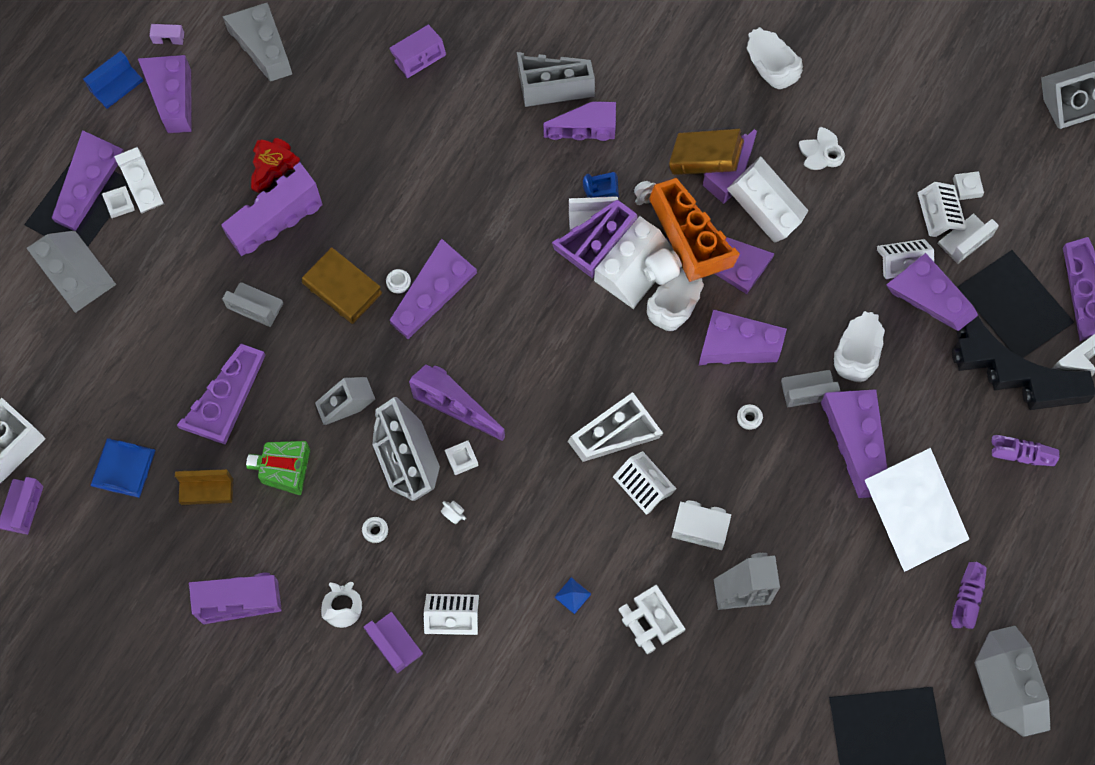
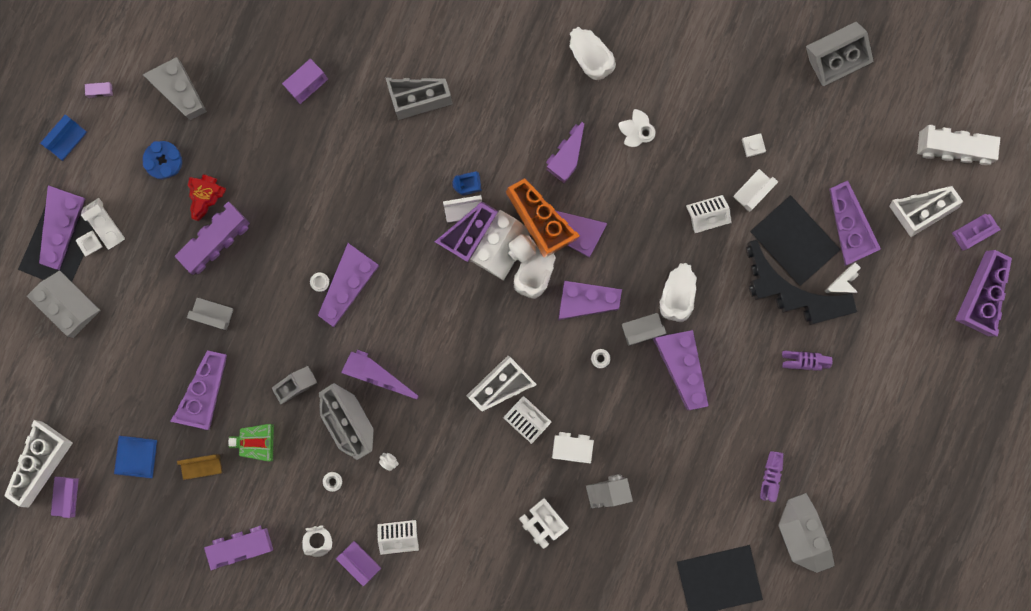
camera: 10 degrees left, 15 degrees up
(171, 89) = (112, 142): medium lavender wedge -> none
(223, 108) = (171, 154): none -> blue plate
(342, 285) = (276, 292): pearl gold piece -> none
(461, 457) = (388, 418): white plate -> none
(572, 595) = (484, 512): blue slope -> none
(589, 121) = (449, 128): medium lavender slope -> none
(643, 192) = (501, 184): white plate -> none
(706, 152) = (546, 147): pearl gold piece -> none
(768, 200) = (599, 181): white slope -> none
(917, 509) = (729, 417): sticker -> none
(933, 292) = (731, 246): medium lavender wedge -> none
(941, 208) = (734, 169): white panel -> none

